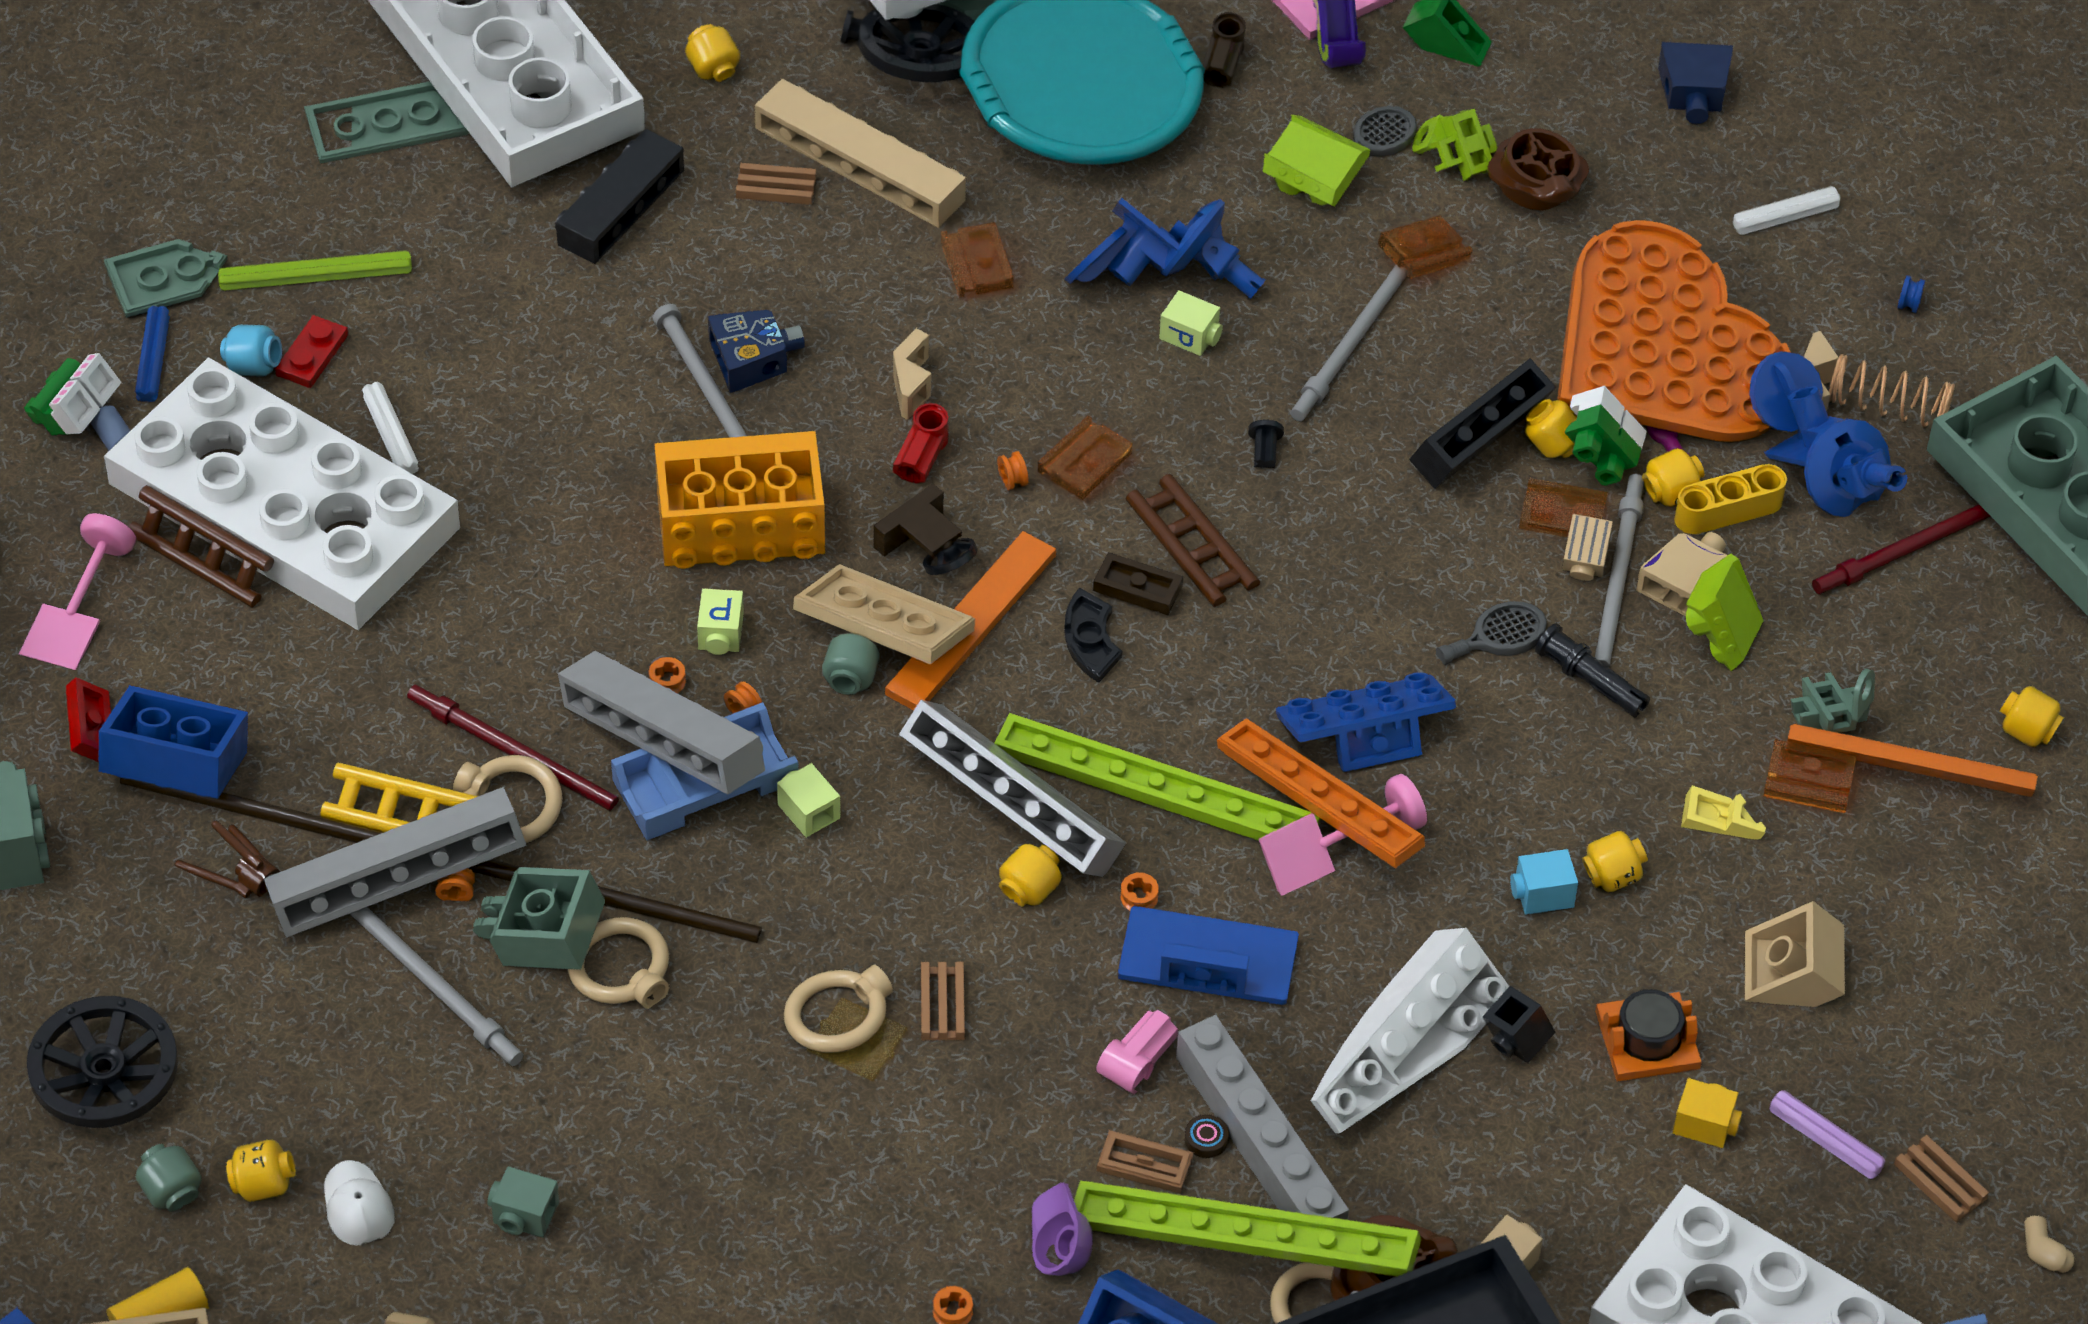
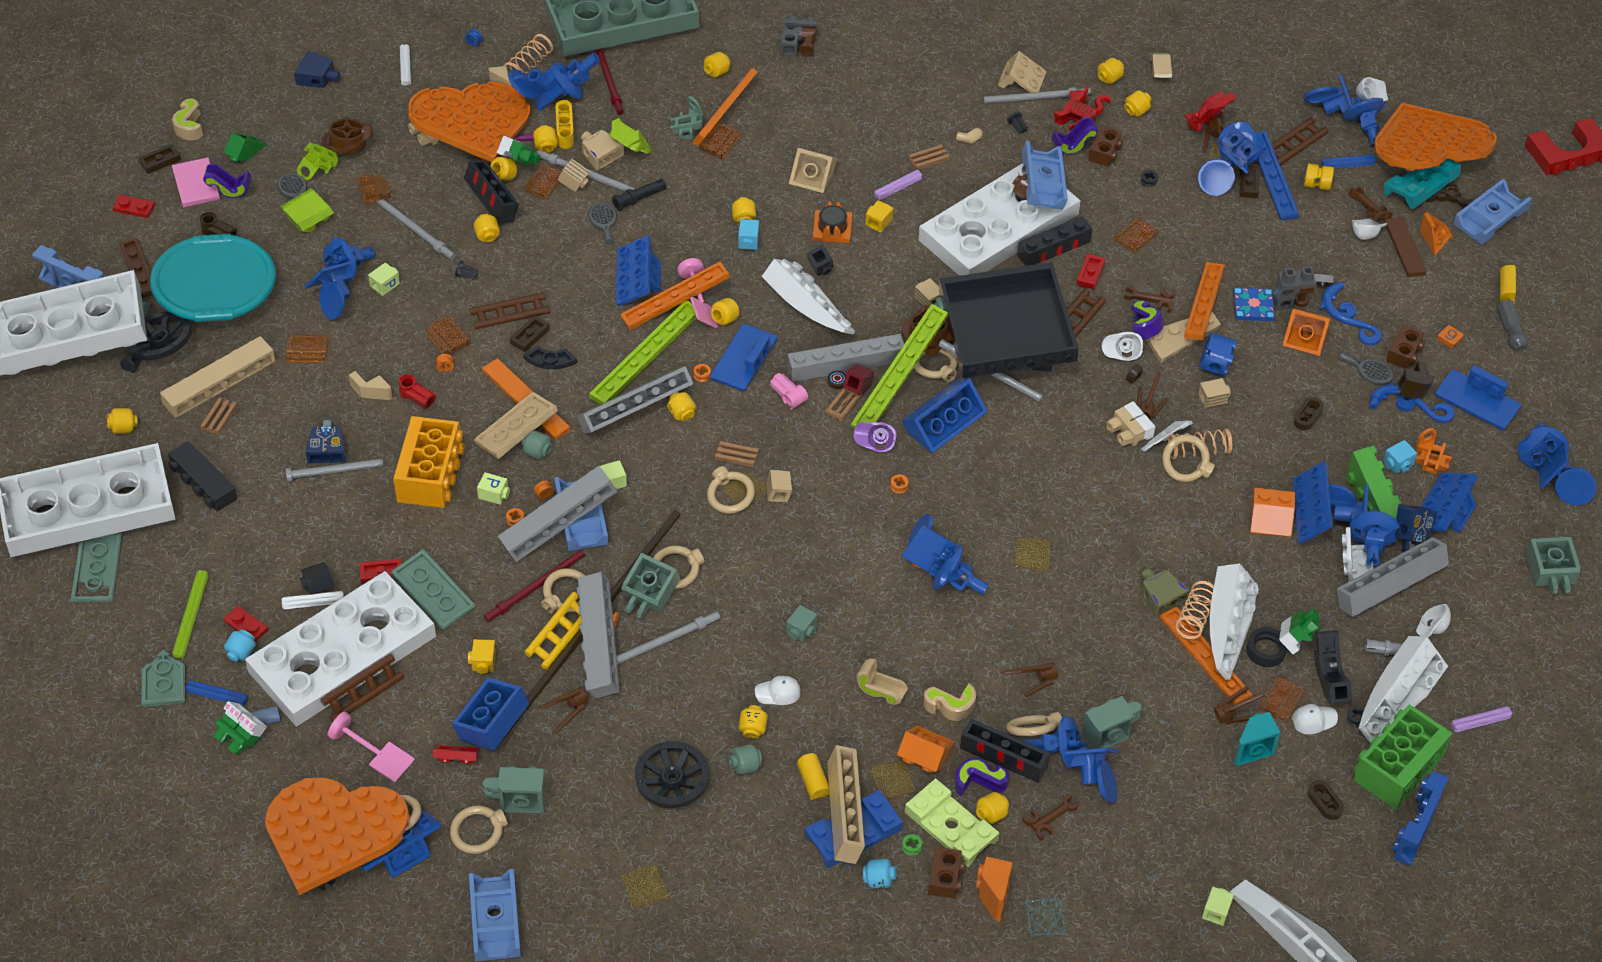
camera: 75 degrees left, 0 degrees up
(316, 705) = (482, 656): none -> yellow brick
(429, 415) = (316, 578): none -> black brick
(452, 592) = (433, 590): none -> sand green tile
(479, 507) = (371, 569): none -> red plate
(870, 1085) = (778, 486): none -> tan brick
(926, 525) = (472, 397): dark brown piece -> none
(1206, 1166) = (858, 379): none -> dark red brick
(1314, 890) = (725, 311): none -> yellow head
(1385, 444) = (486, 228): none -> yellow head
(1719, 814) = (726, 176): light yellow slope -> none

